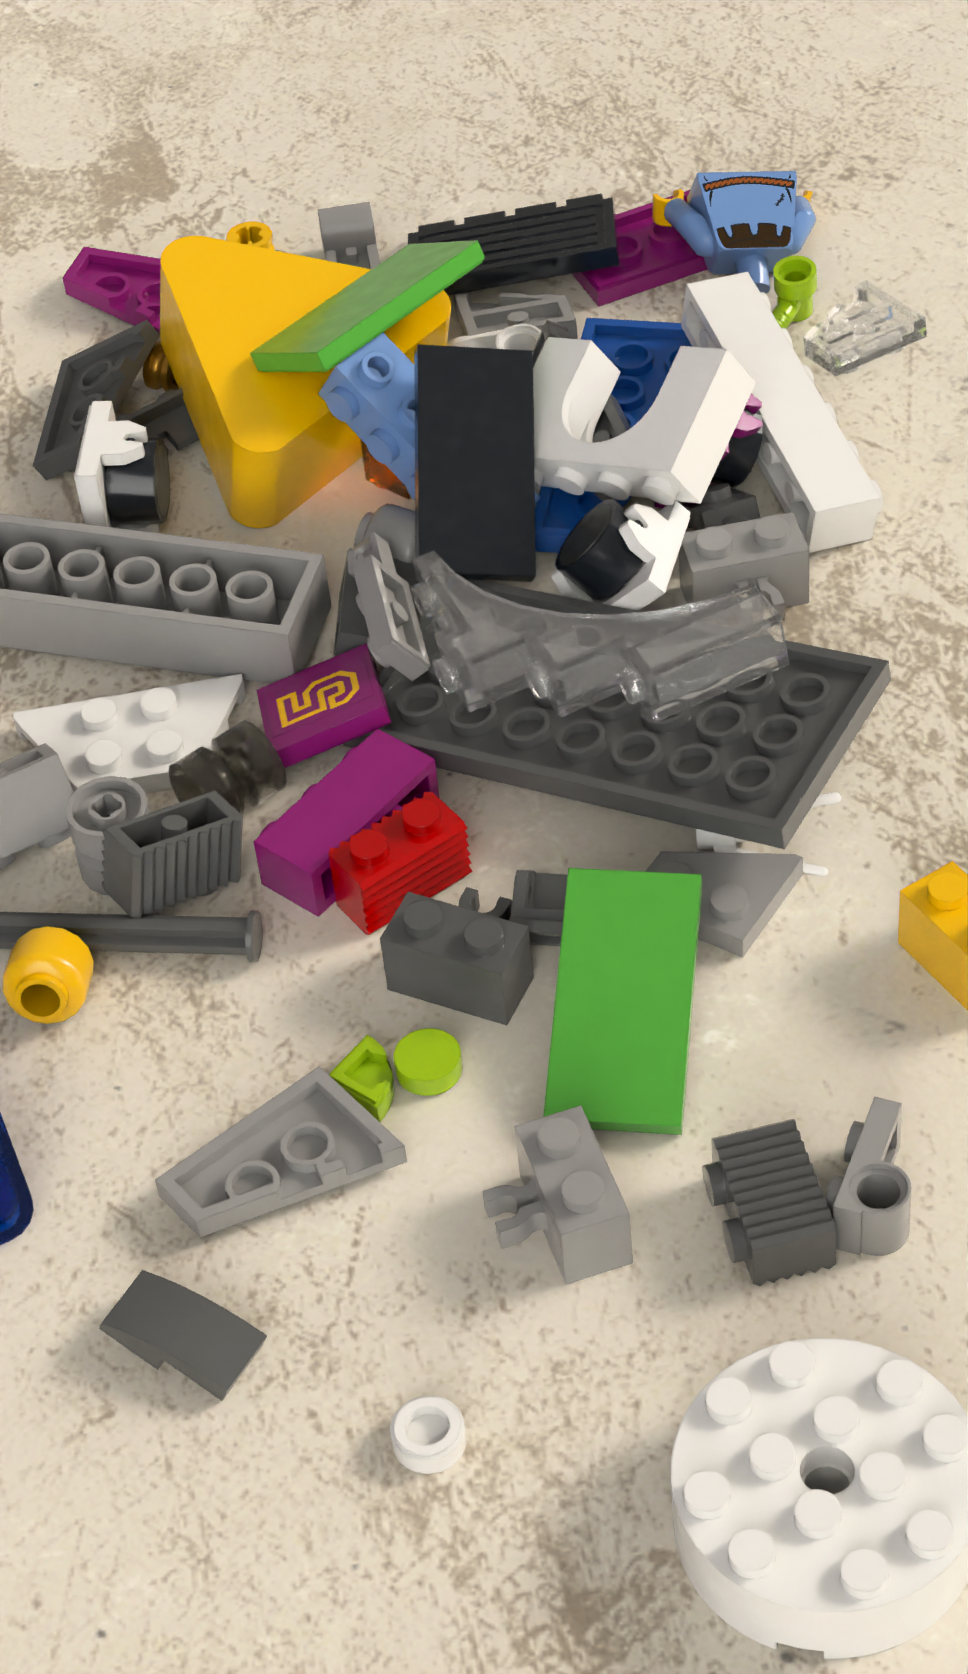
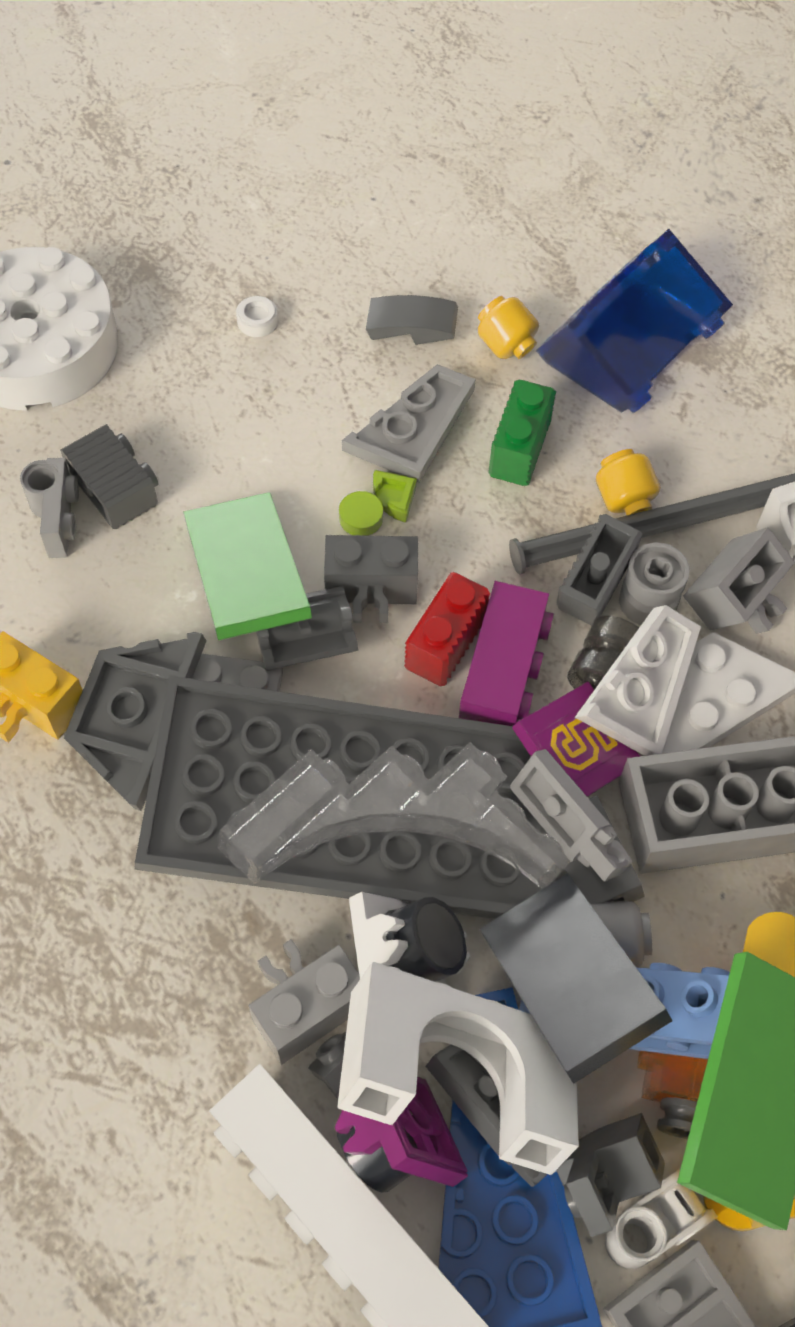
camera: 150 degrees right, 15 degrees up
(50, 1253) = (508, 327): none -> yellow head
(141, 1080) = (521, 432): none -> green brick
(207, 714) = (644, 683): none -> white wing
(565, 1195) = (231, 439): light grey brick -> none
(834, 885) = (123, 708): none -> dark grey wing

